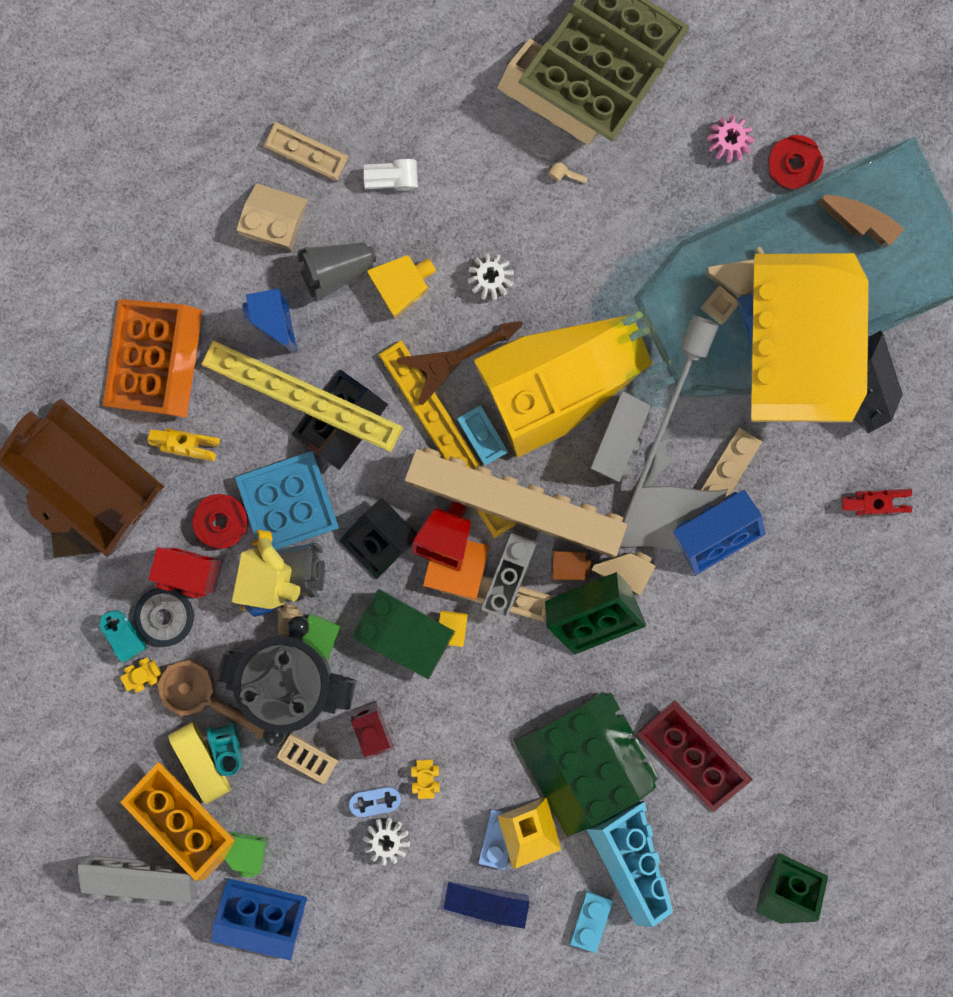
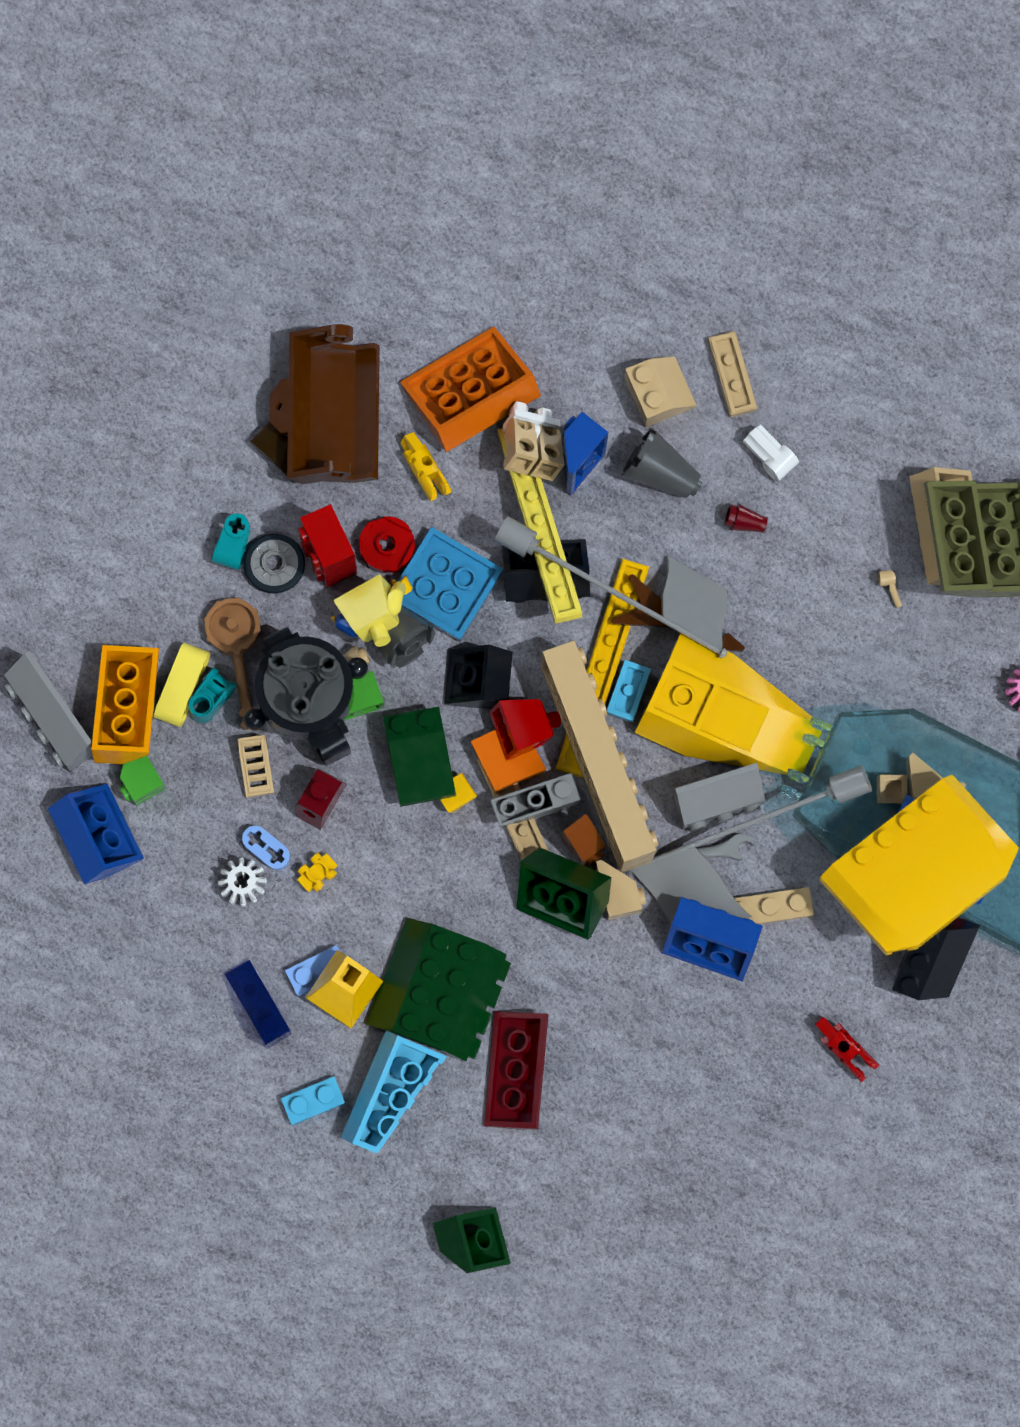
camera: 40 degrees right, 10 degrees down
(136, 677) = (207, 580): yellow piece -> none
(235, 347) = (533, 442): none -> tan hips
(401, 282) = (694, 529): yellow torso -> none
(424, 239) = (743, 519): none -> dark red cone
(454, 331) = (688, 601): none -> light grey flag
(498, 282) = (761, 603): white gear -> none

